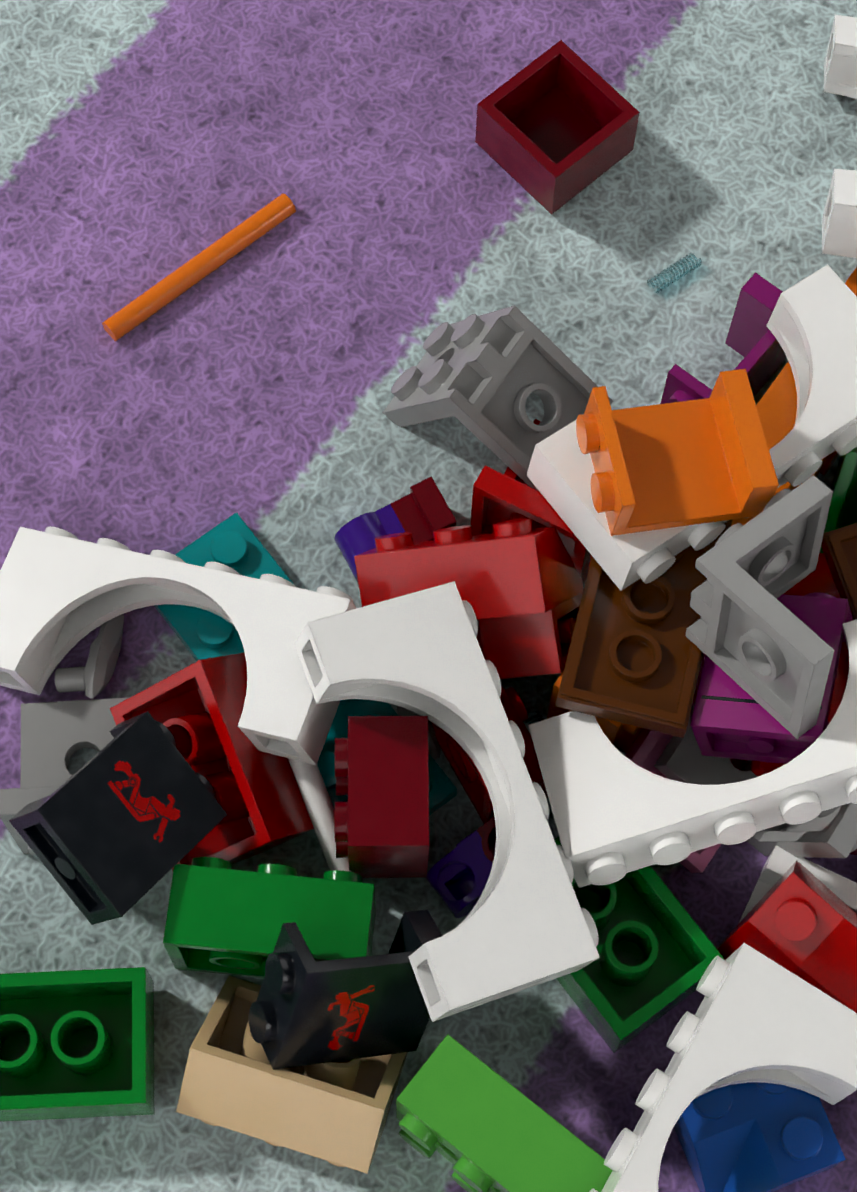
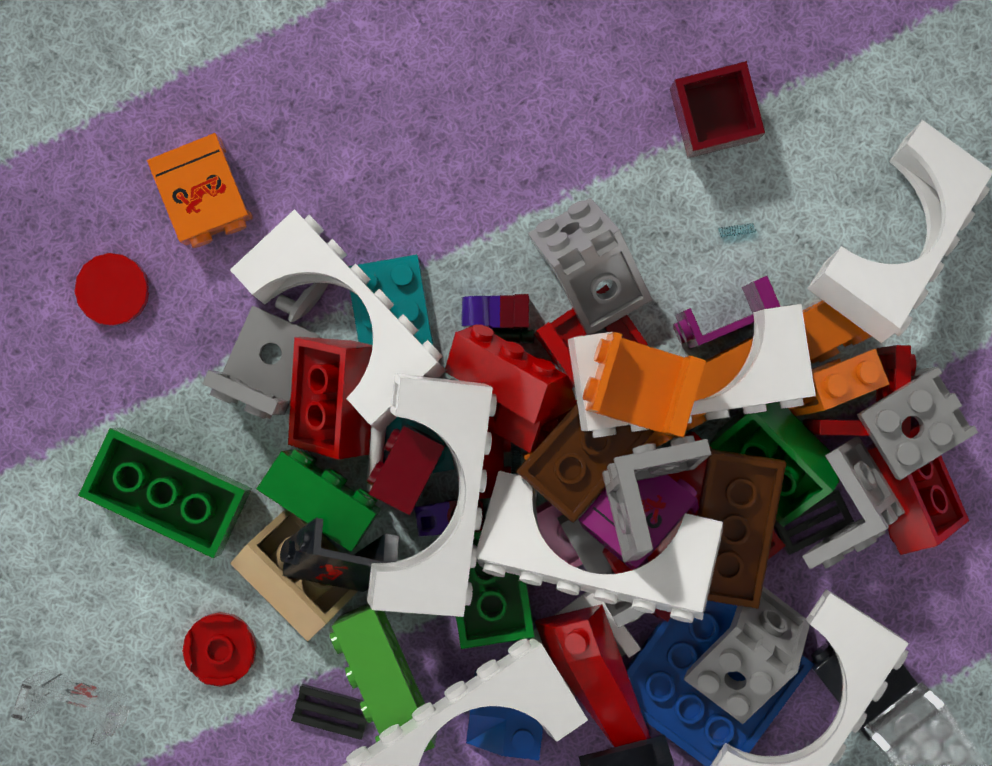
camera: 25 degrees right, 20 degrees up
(121, 820) = (266, 417): black panel -> none
(199, 267) = (472, 89): orange bar -> none

